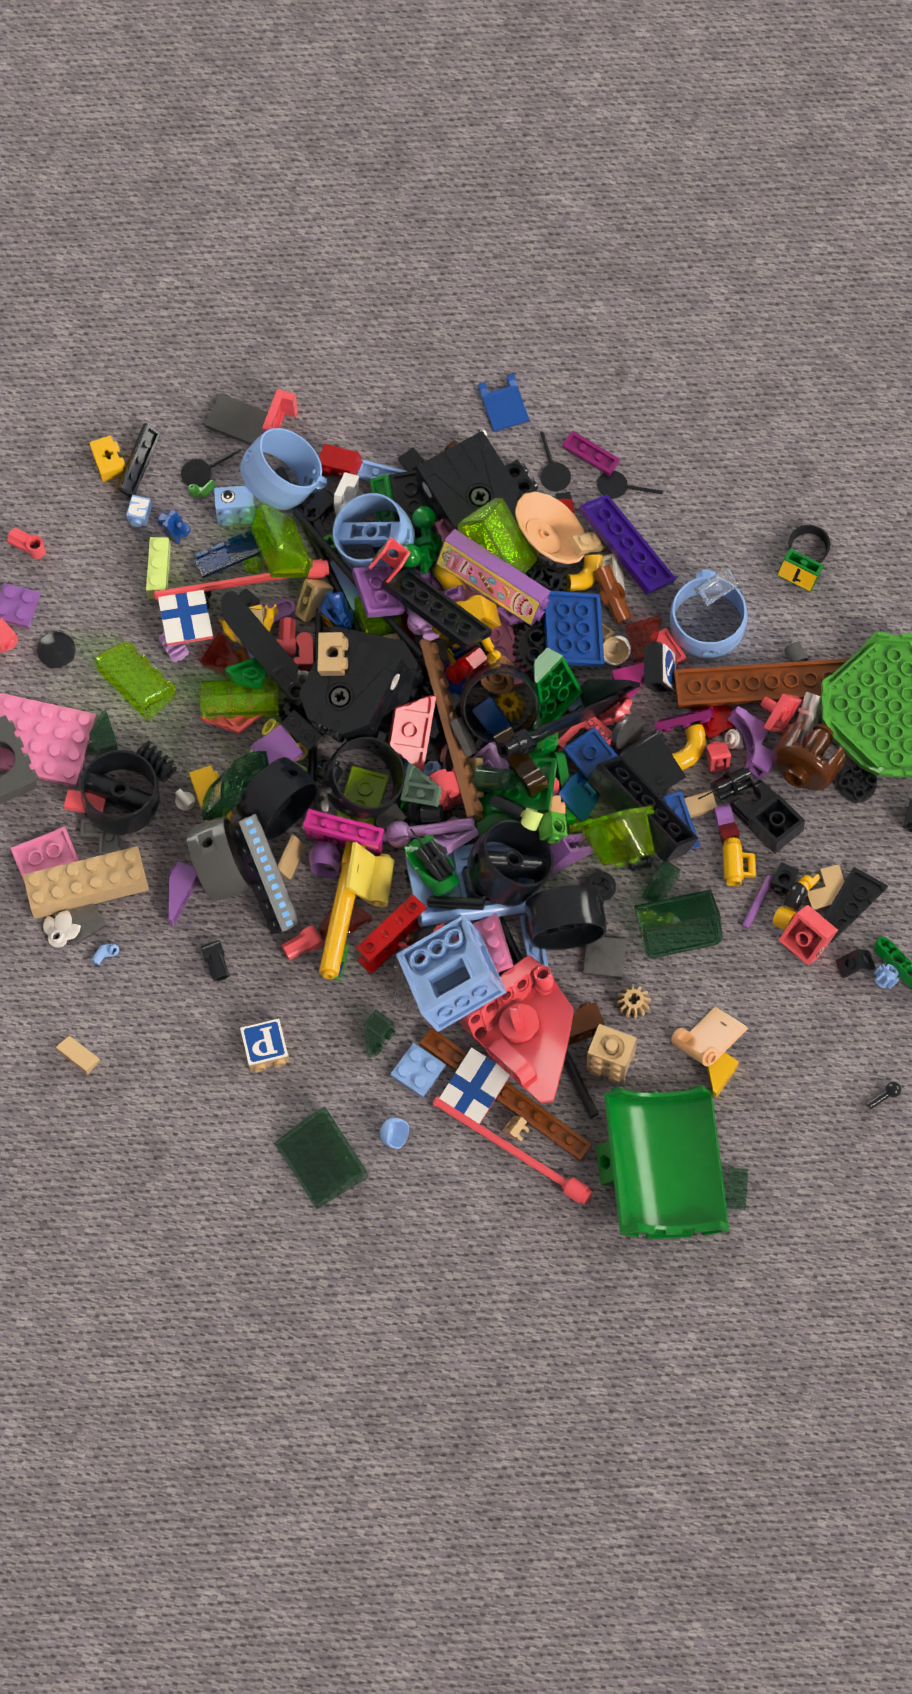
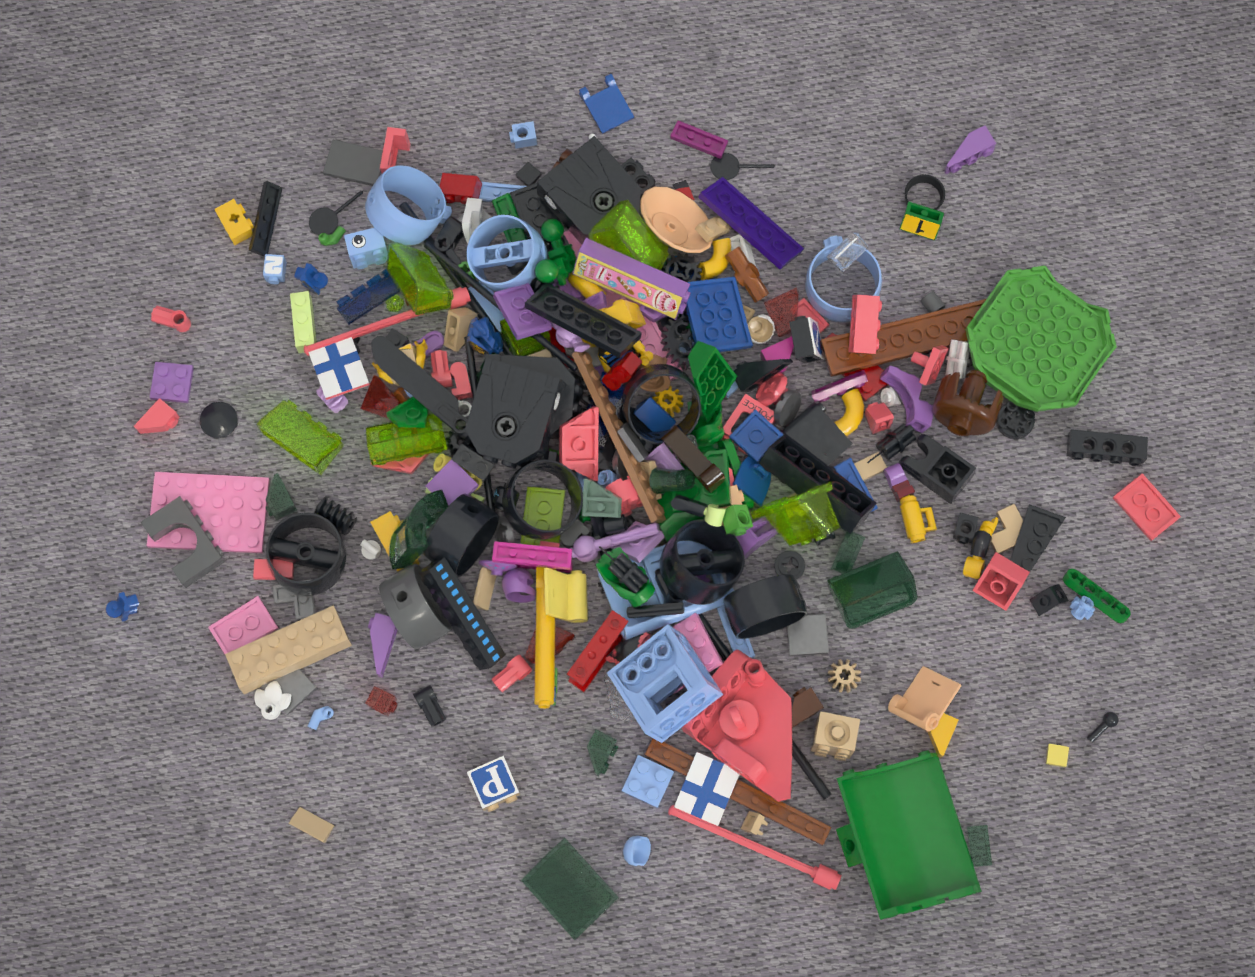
camera: 10 degrees left, 5 degrees up
(168, 948) = (382, 701): none -> clear red brick
(307, 837) = (497, 568): none -> medium lavender dish
(332, 665) = (486, 375): tan brick -> none
(396, 563) = (536, 281): coral piece -> none
(419, 425) = (526, 128): none -> light blue brick
(525, 742) = (696, 440): black piece -> none
(554, 475) = (668, 166): black piece -> none
(719, 660) = (864, 324): none -> coral brick
(757, 902) = (943, 554): medium lavender bar -> none
(832, 1115) = (1057, 755): none -> light yellow tile
(868, 506) = (975, 145): none -> medium lavender slope

